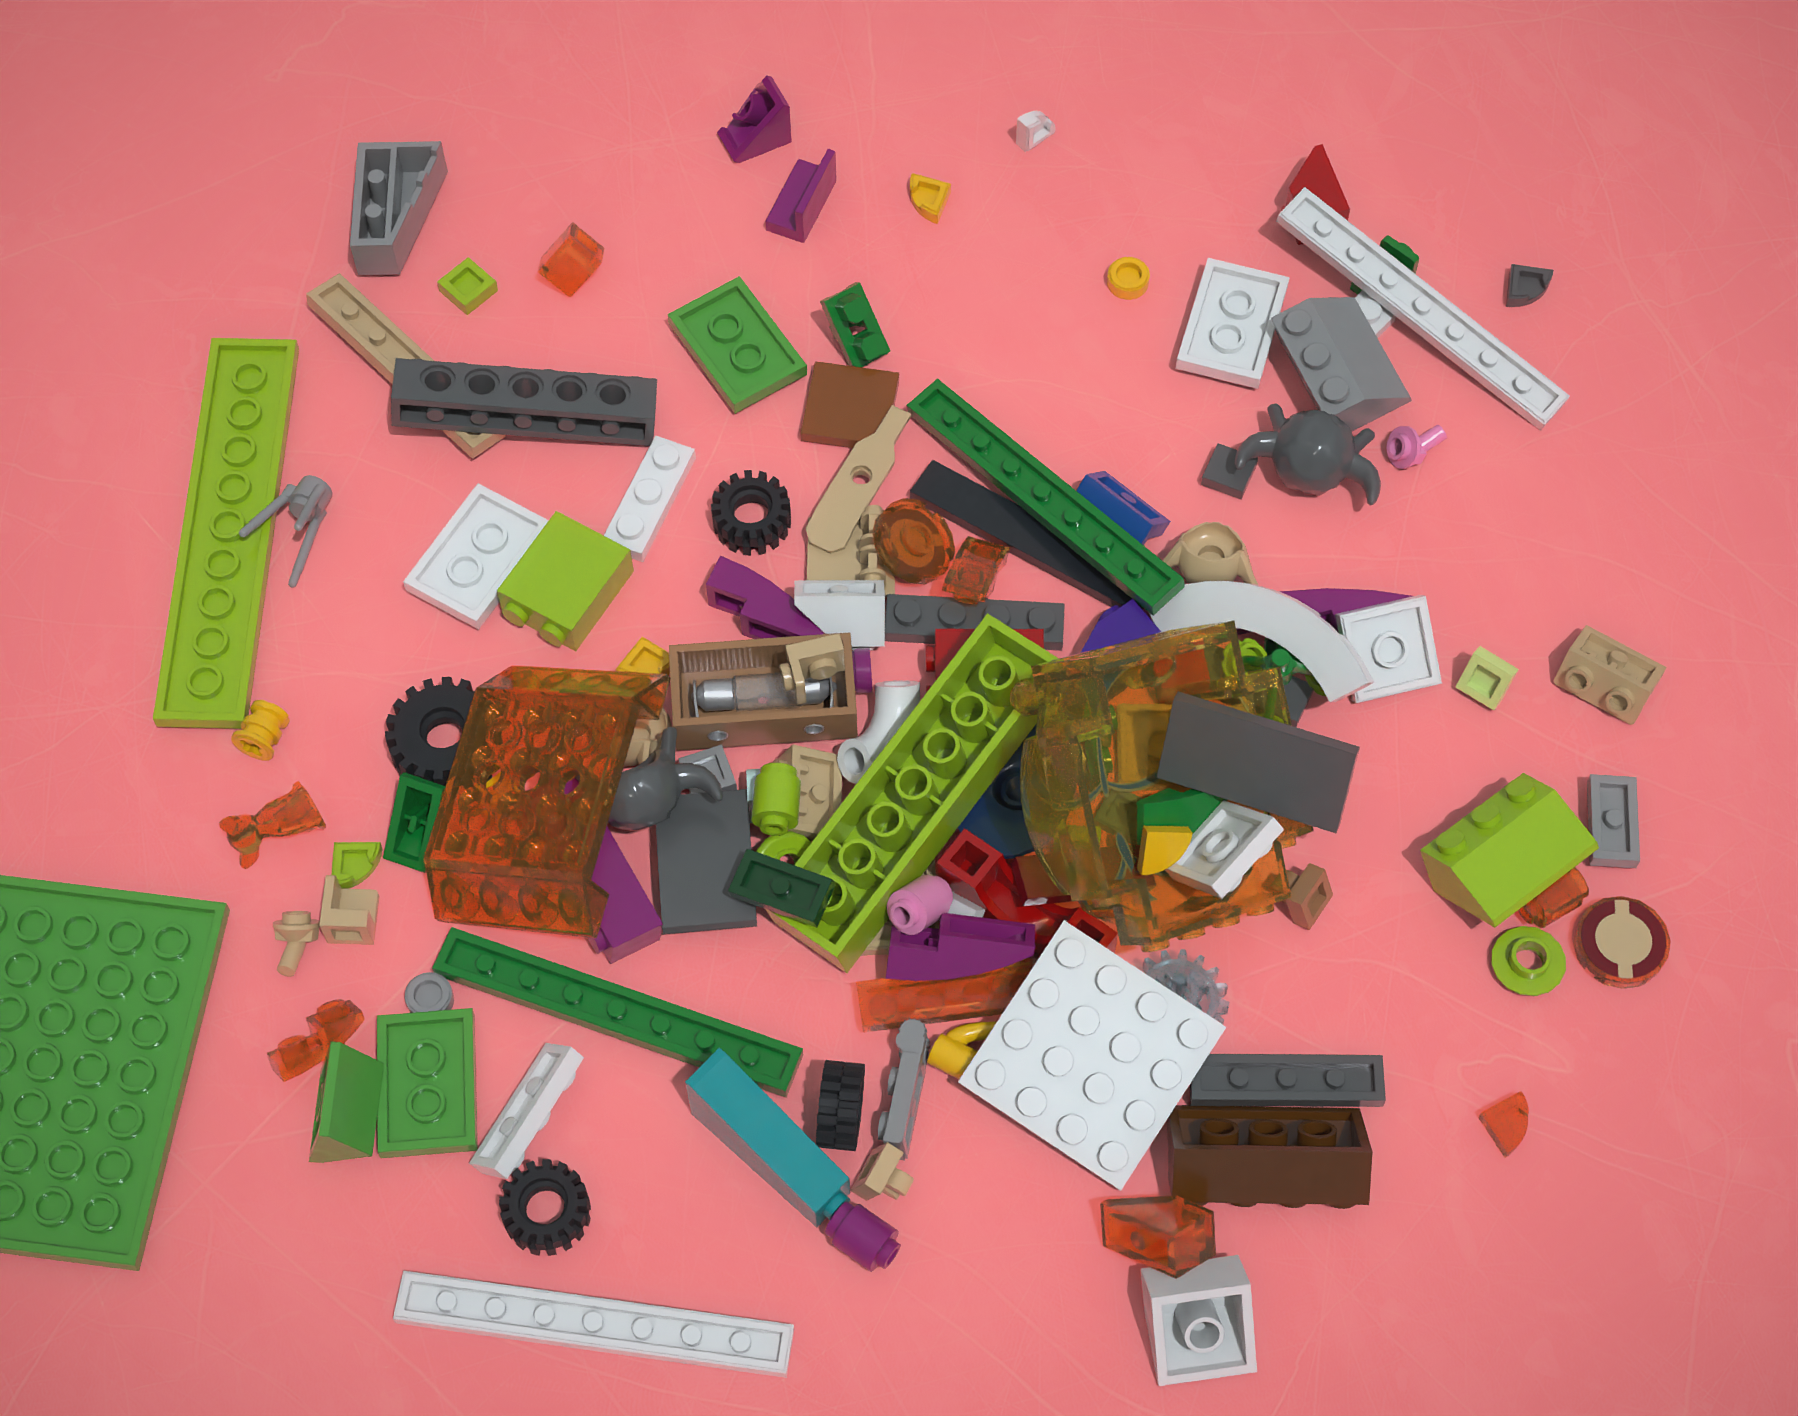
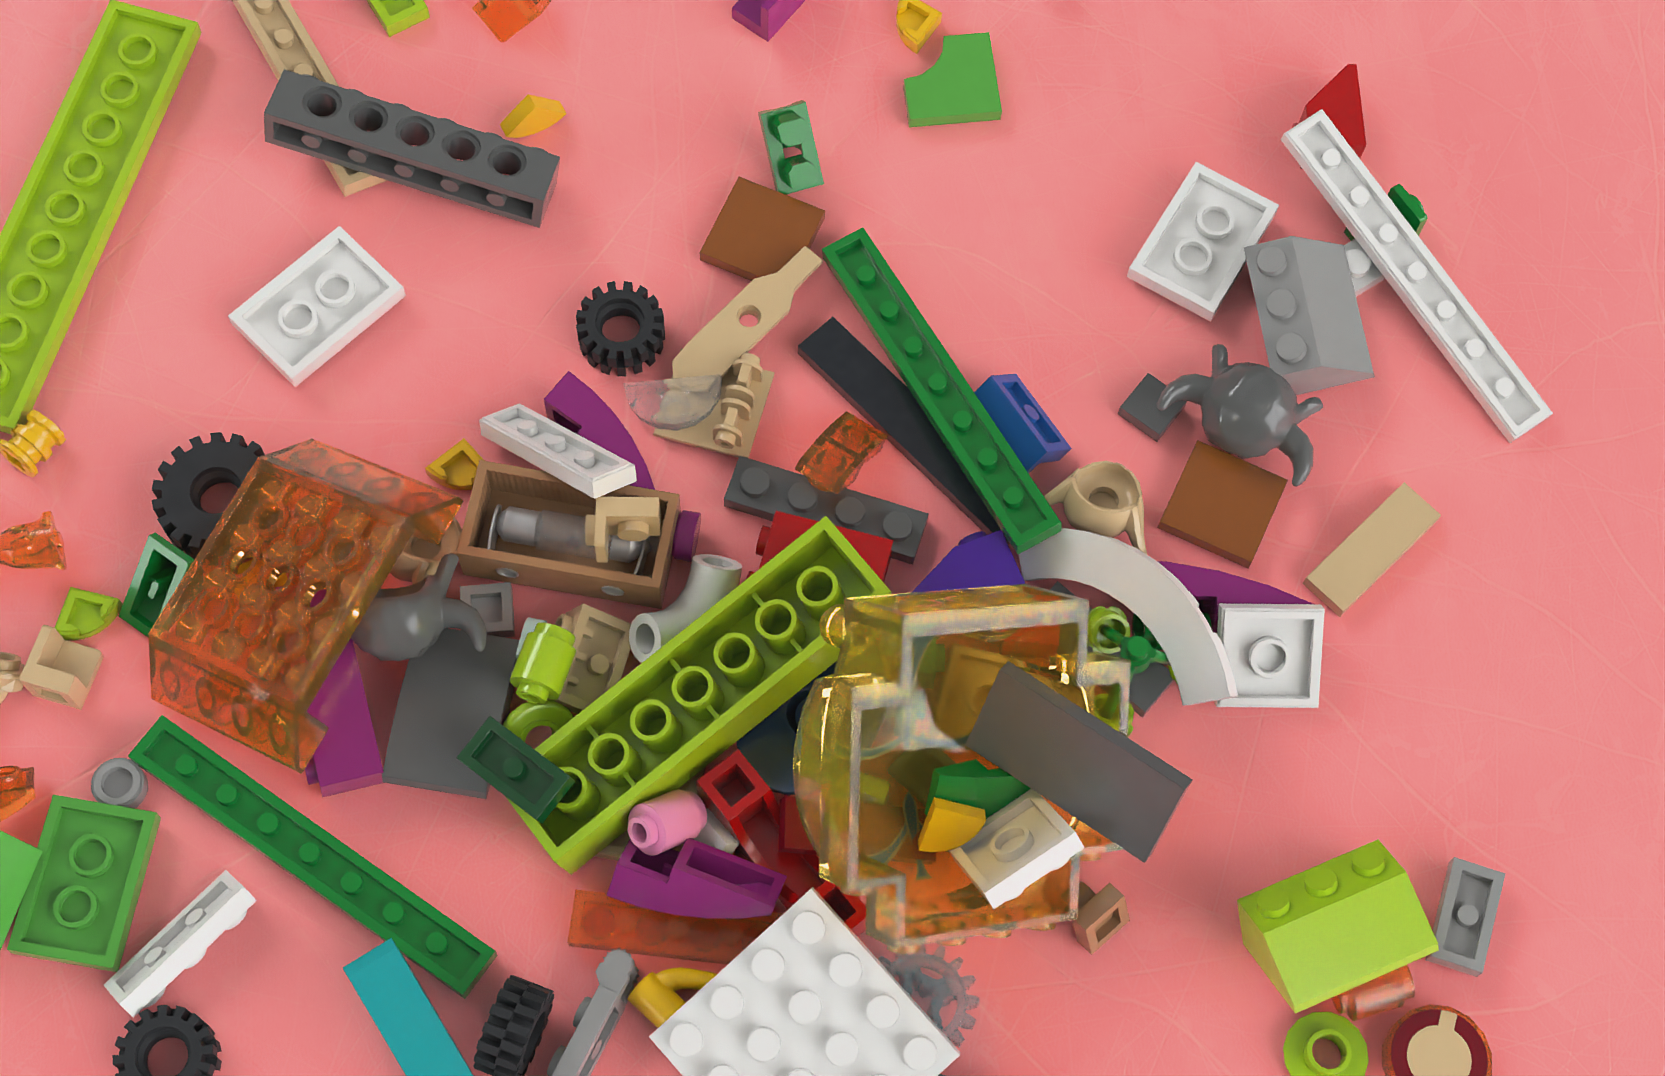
camera: 10 degrees right, 5 degrees up
(306, 504) = (153, 204): light grey plant -> none
(565, 581) = (398, 357): lime brick -> none
(617, 352) = (532, 116): none -> yellow tile
(650, 496) = (518, 285): white plate -> none
(733, 621) = (558, 450): none -> white tile
(737, 344) = (661, 138): bright green plate -> none
(817, 560) = (674, 402): none -> clear plate
(845, 608) = (685, 463): white slope -> none
(913, 541) = (783, 404): clear orange tile -> none
(982, 243) = (958, 86): none -> bright green tile
(1128, 278) = (1104, 163): yellow tile -> none
(1312, 537) = (1222, 504): none -> dark orange tile
(1408, 448) = (1355, 430): bright pink plate -> none
(1449, 543) = (1371, 549): none -> tan tile
(1487, 678) = (1369, 715): yellowish green tile -> none
(1527, 284) = (1540, 274): dark grey tile -> none
(1609, 674) = (1508, 745): tan bracket -> none

